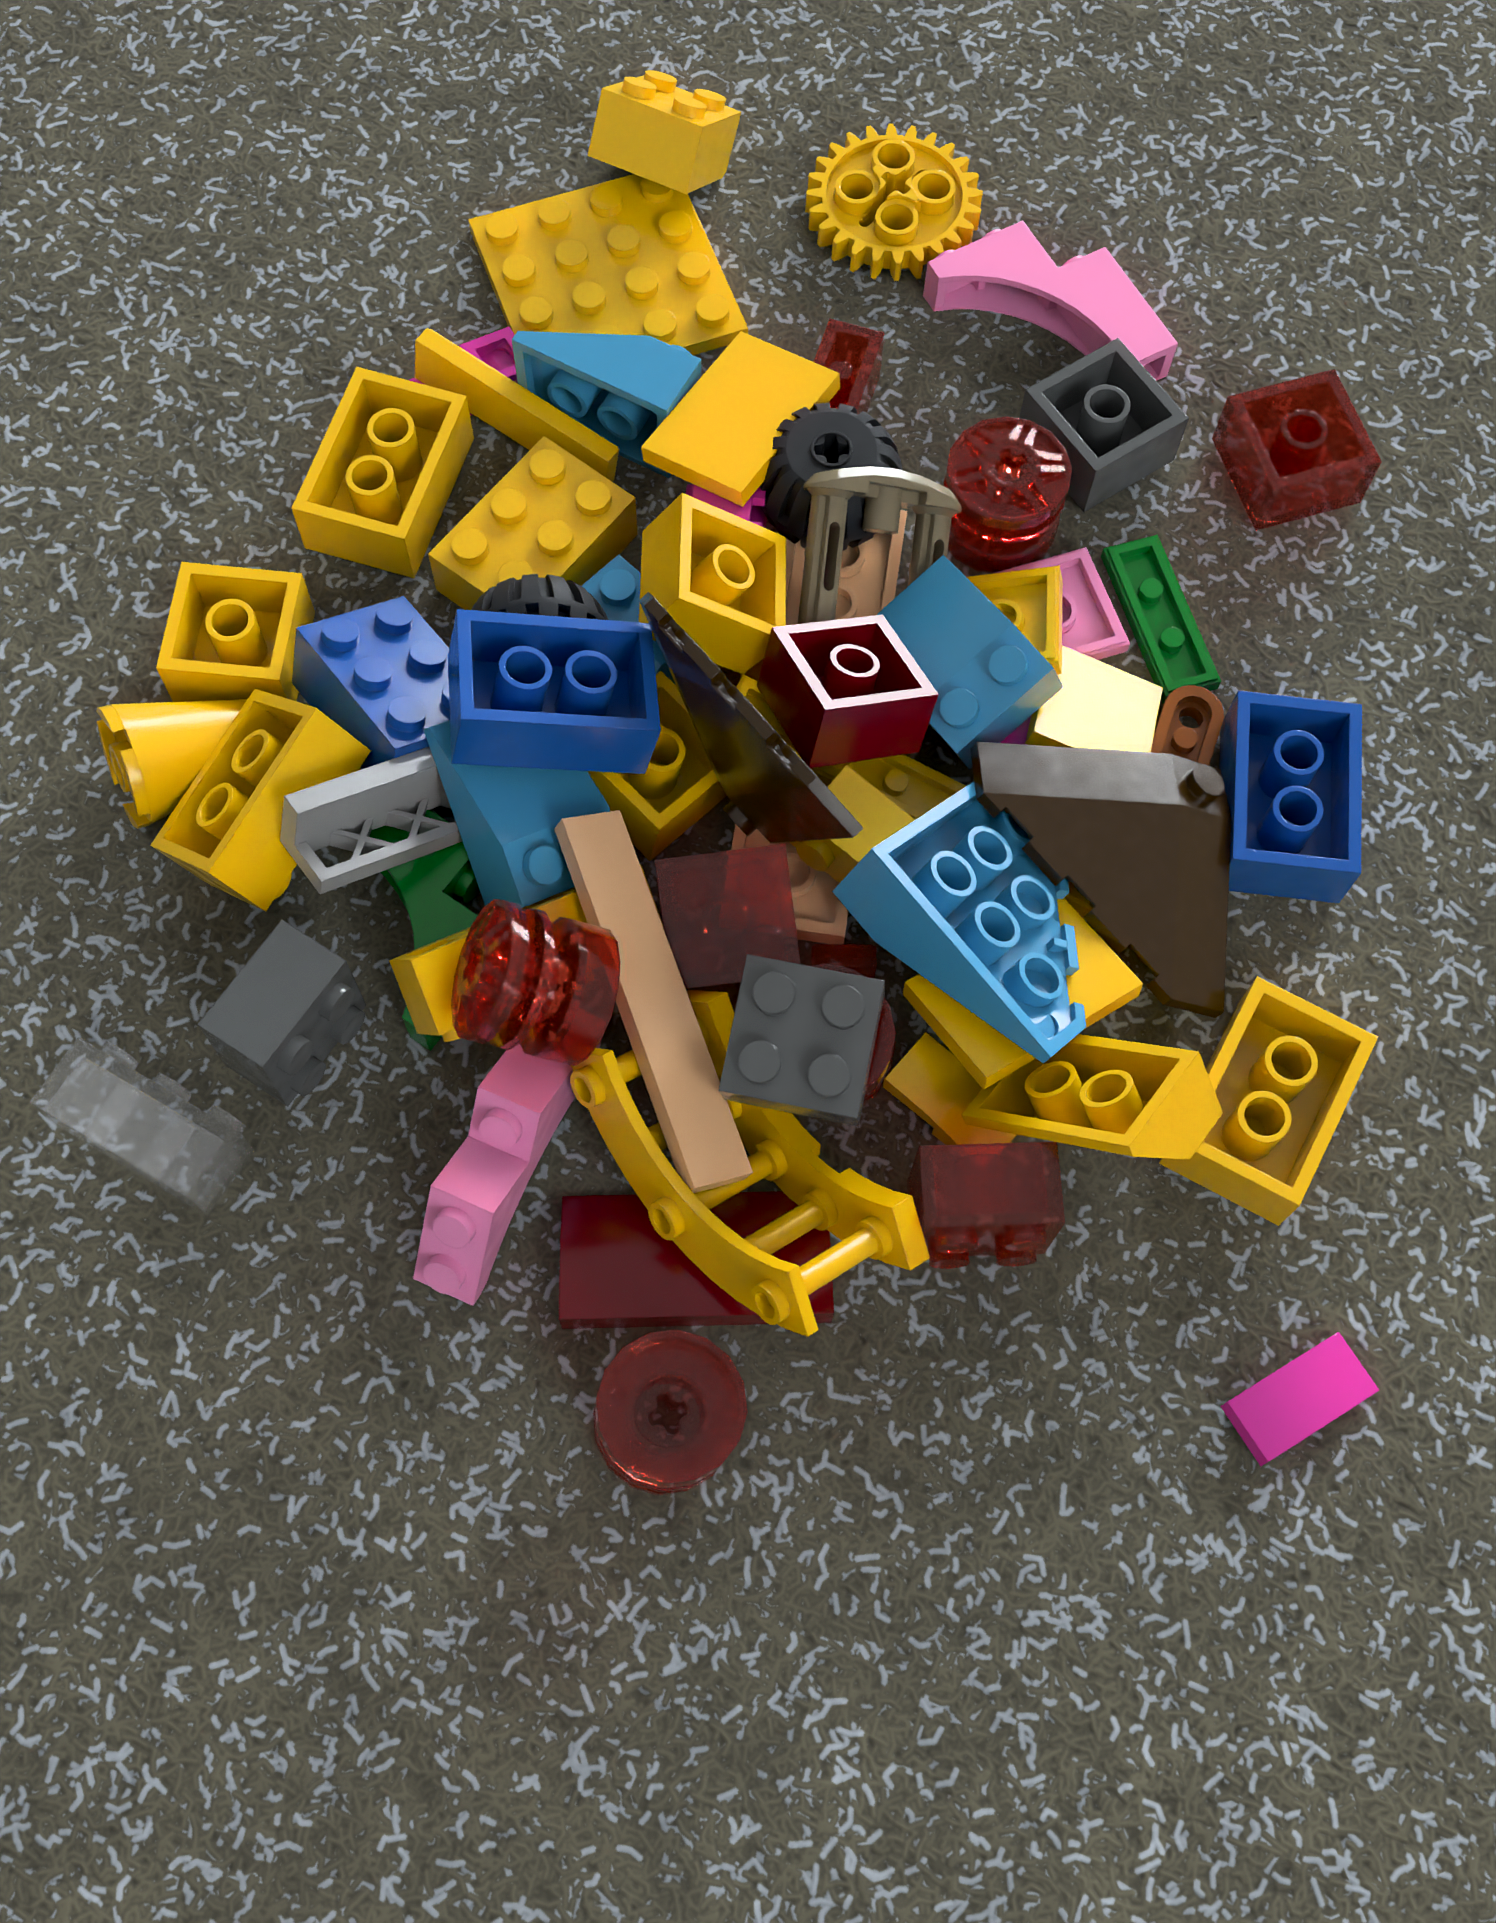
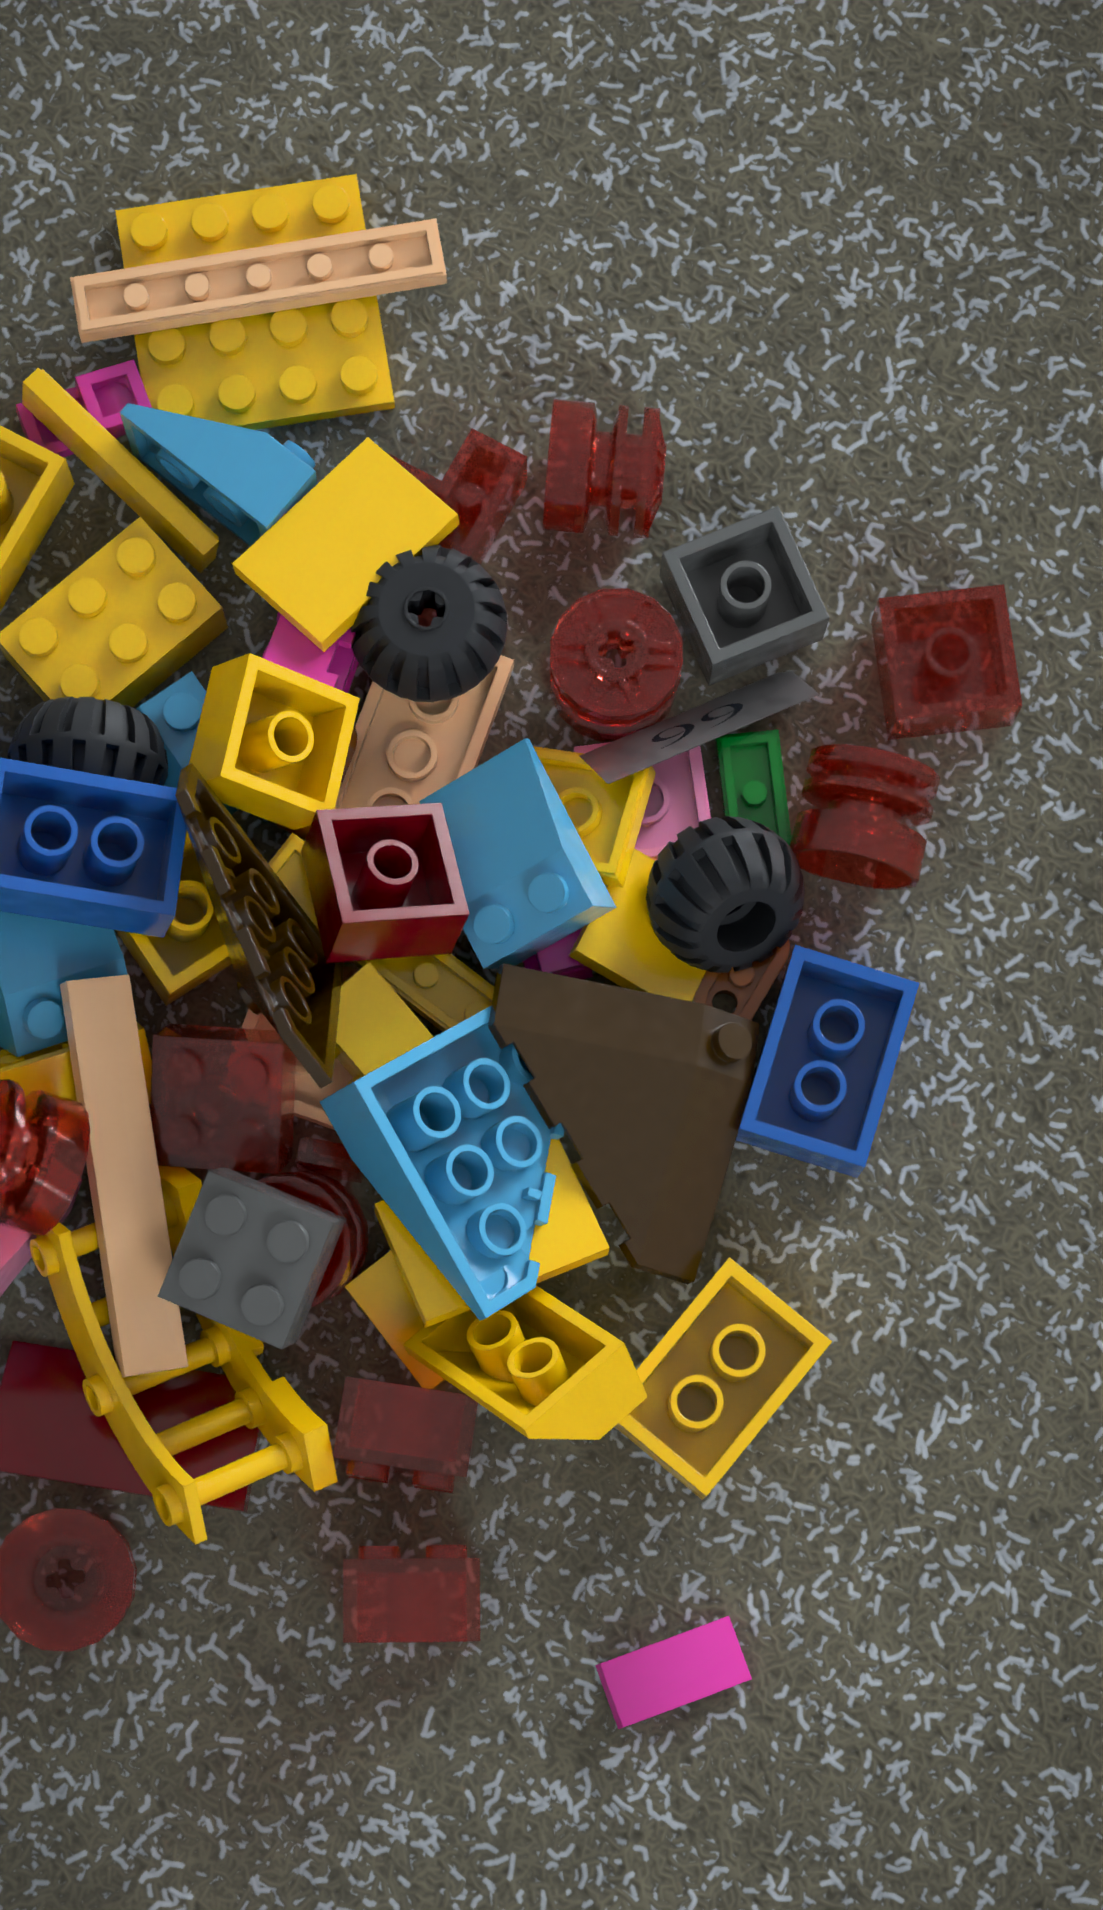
camera: 10 degrees right, 10 degrees up
(607, 246) = (258, 280): none -> light nougat tile
(664, 131) = (345, 151): yellow brick -> none
(885, 495) = (471, 669): dark tan piece -> none
(892, 201) = (556, 228): yellow gear -> none
(957, 340) = (602, 468): none -> clear red wheel
(1031, 1363) = (411, 1598): none -> clear red brick
(1081, 301) = (765, 431): bright pink arch -> none
(1088, 536) = (698, 726): none -> flat silver sticker
(1158, 663) = (725, 894): none -> black wheel
(1264, 580) = (864, 816): none -> clear red wheel

